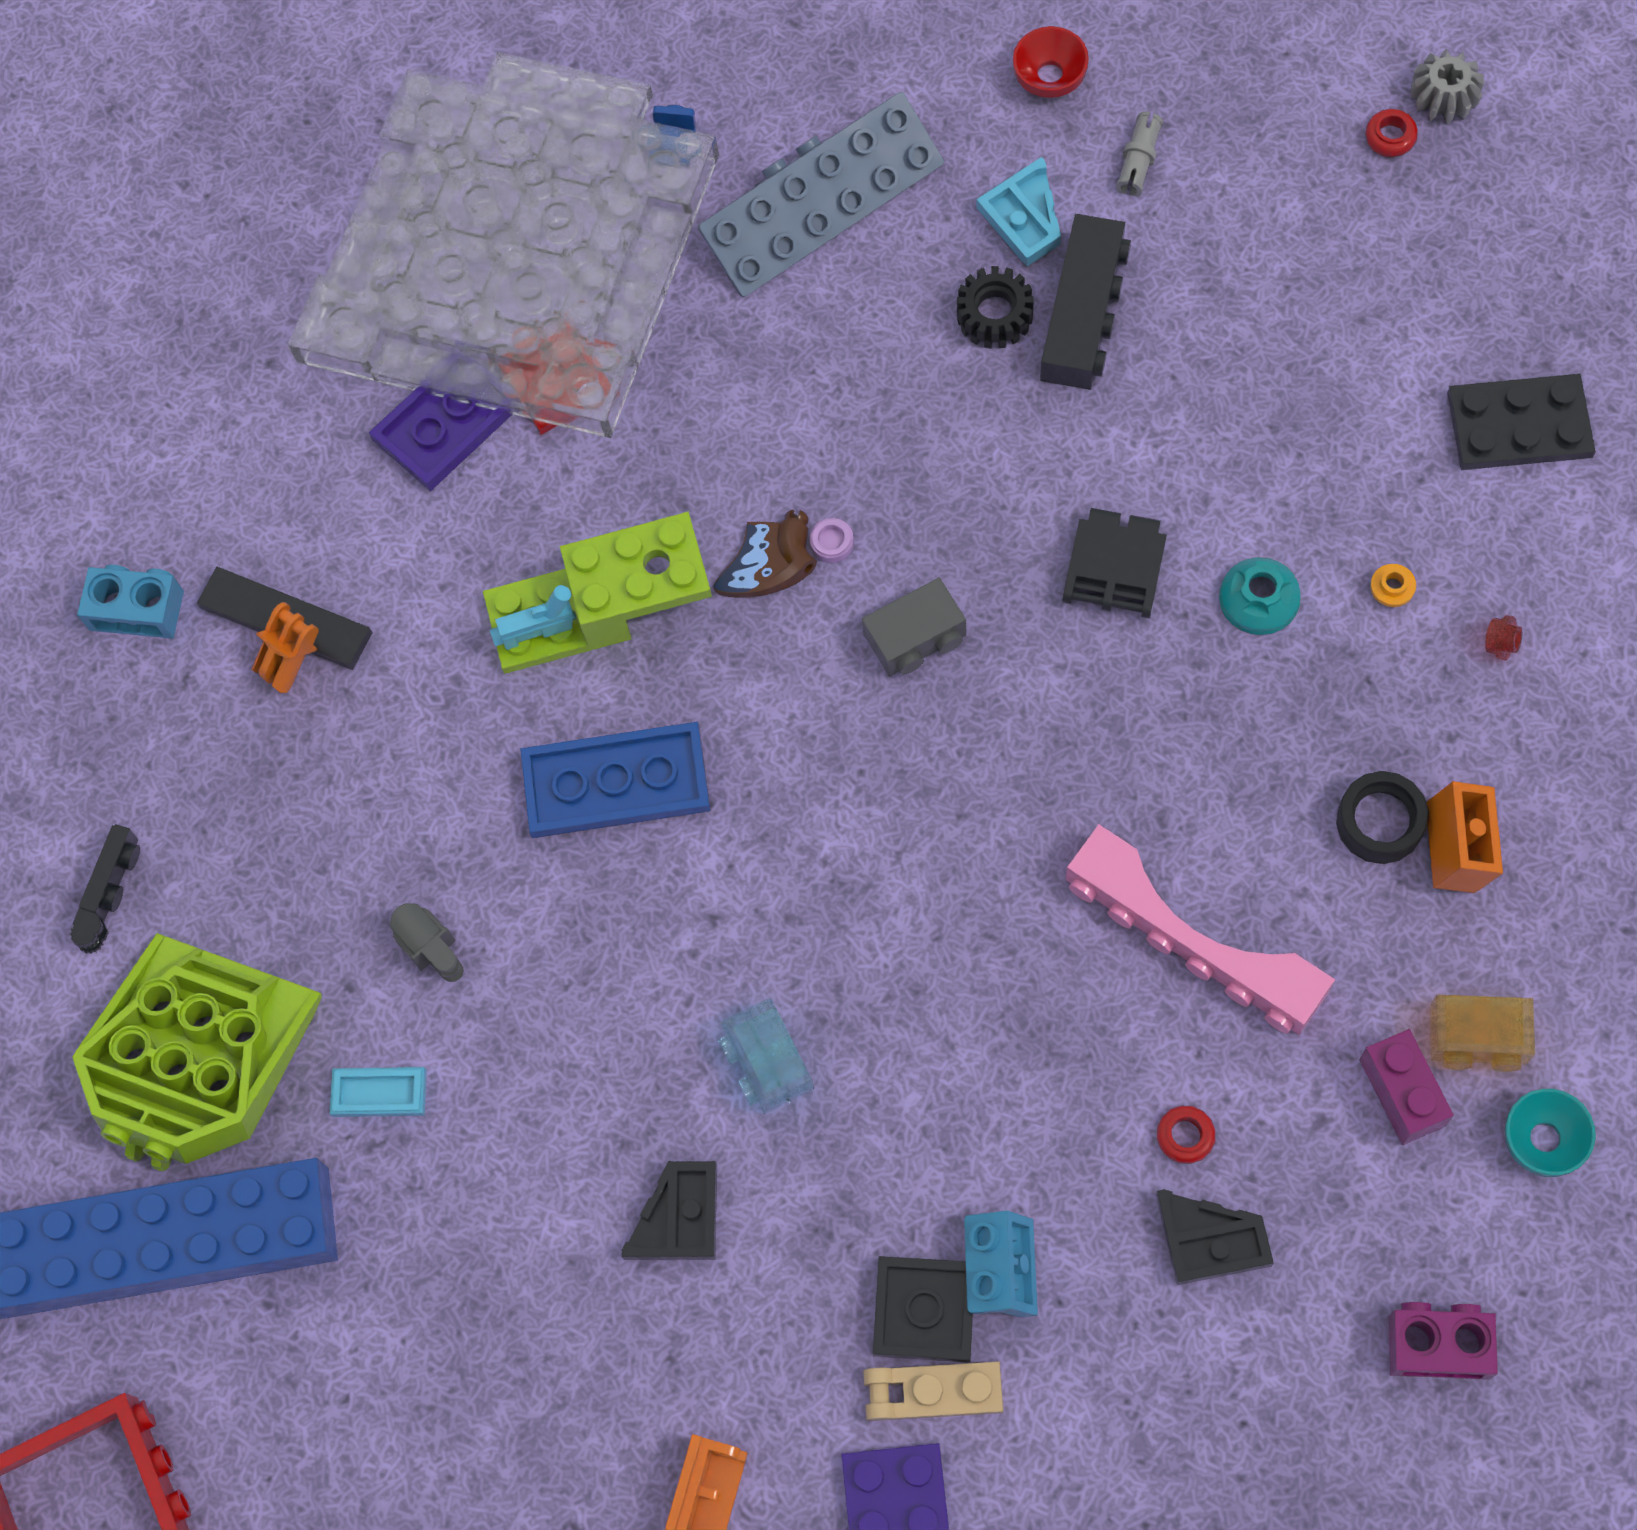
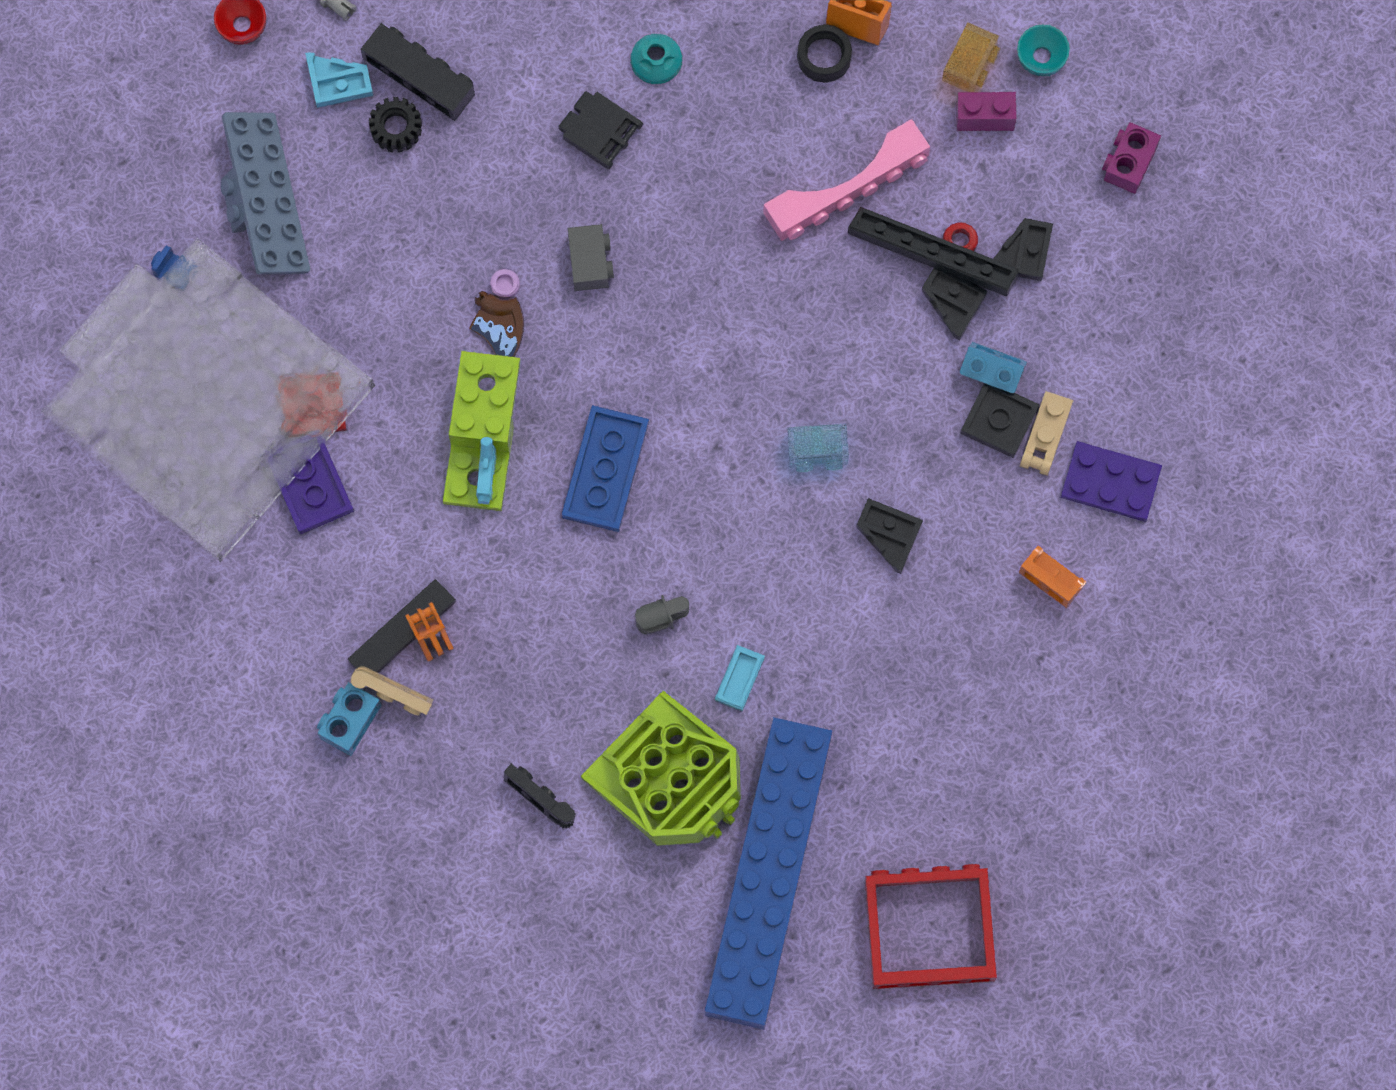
camera: 75 degrees left, 5 degrees up
(185, 635) = (391, 690): none -> tan plate
(1084, 1162) = (953, 300): none -> black wing
(1143, 1103) = (933, 251): none -> black tile

